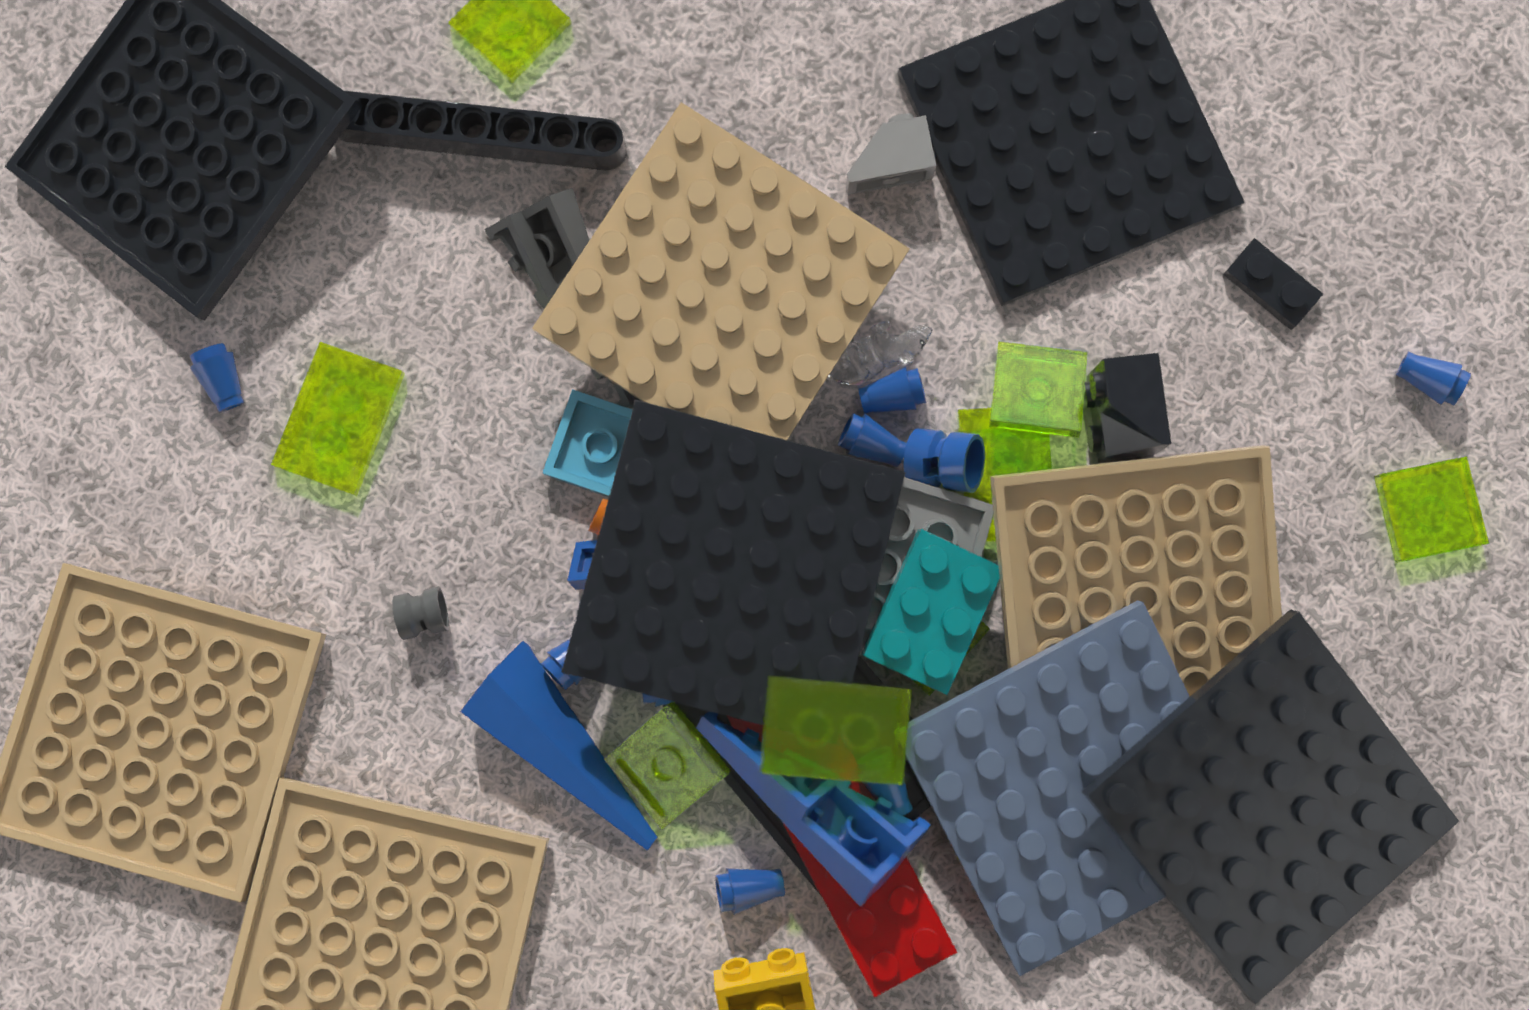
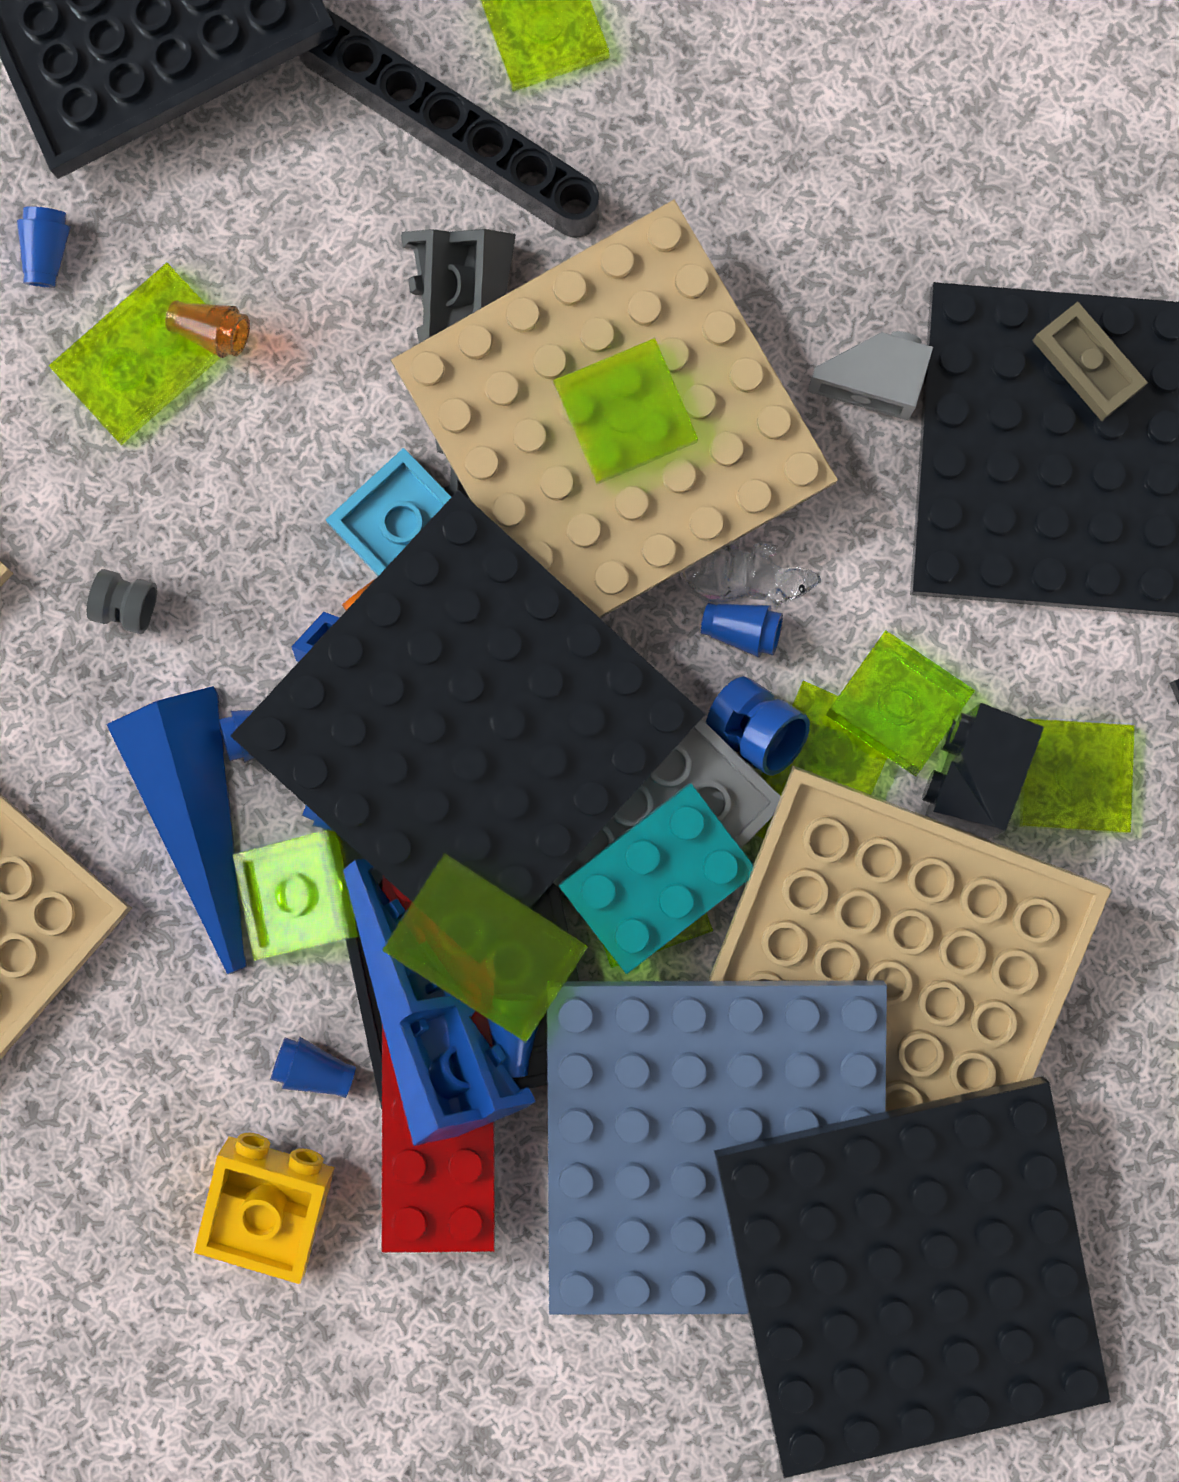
camera: 25 degrees right, 0 degrees up
(379, 373) = (212, 327): none -> clear orange cone
(728, 277) = (625, 411): none -> clear neon green tile
(869, 440) = (691, 665): blue cone -> none
(1045, 68) = (1089, 361): none -> dark tan plate
(1199, 375) = (1080, 778): none -> clear neon green tile

